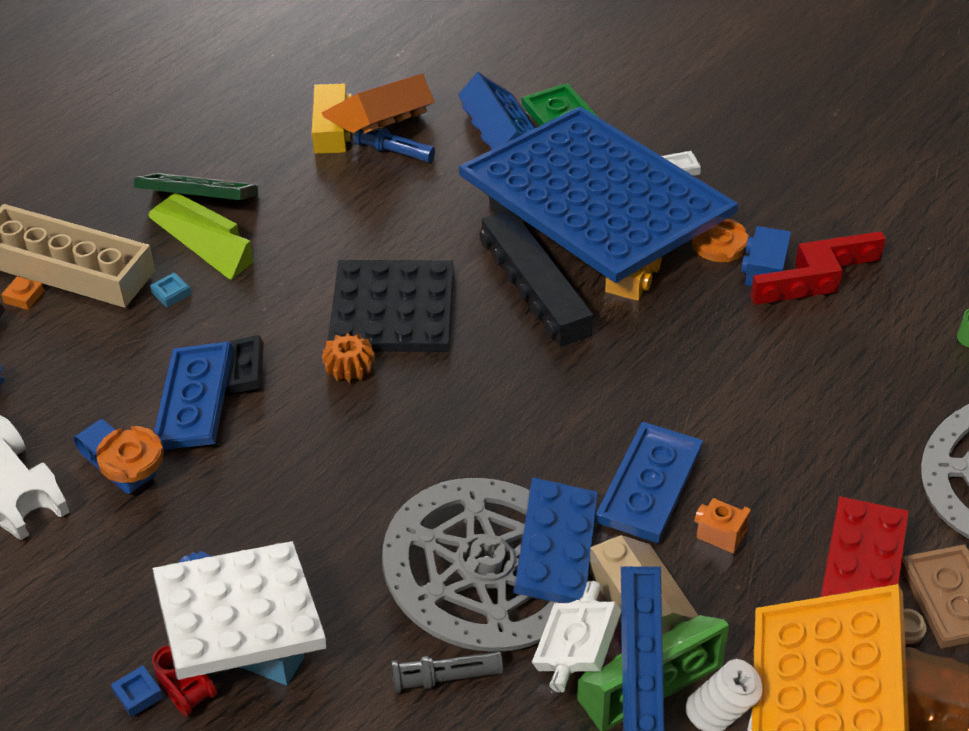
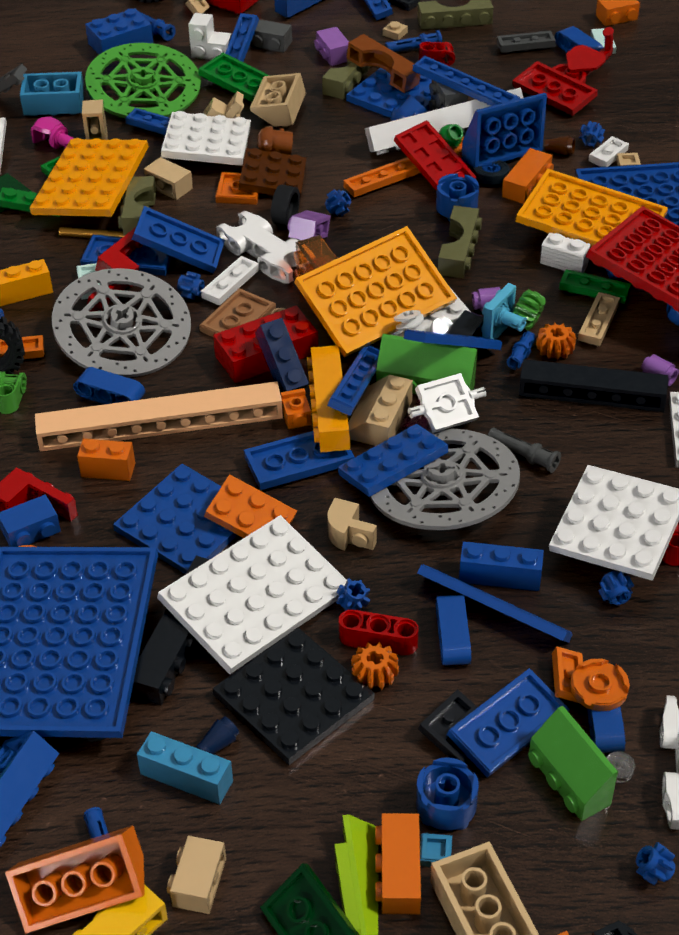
camera: 135 degrees left, 0 degrees up
(67, 430) = (623, 764): none -> clear tile
(104, 392) = (573, 764): none -> bright green slope
(179, 467) = (564, 665): none -> orange plate
(187, 257) = (399, 863): none -> orange brick
(189, 307) = (447, 794): none -> blue brick
(301, 477) = (495, 603): none -> blue tile
(316, 431) = (453, 630): none -> blue beam
(317, 168) = (197, 874): none -> tan brick
(329, 511) = (501, 566): none -> blue brick
(375, 382) = (361, 627): none -> red beam
(402, 205) = (185, 767): none -> dark azure brick
(407, 241) = (219, 736): none -> dark blue cone
(431, 391) = (353, 595): none -> blue gear
(508, 331) = (253, 593): none -> white plate
(517, 442) = (346, 528): none -> tan brick
(607, 387) = (245, 508): none -> orange plate
(663, 362) = (175, 520): none -> blue plate
(690, 566) = (355, 381): none -> blue tile
(698, 544) = (324, 376): none -> light orange brick
(797, 341) = (106, 459): none -> orange brick
(800, 533) = (281, 355): none -> dark blue brick
(824, 421) = (159, 415): none -> light nougat brick
(914, 405) = (107, 387): none -> blue beam

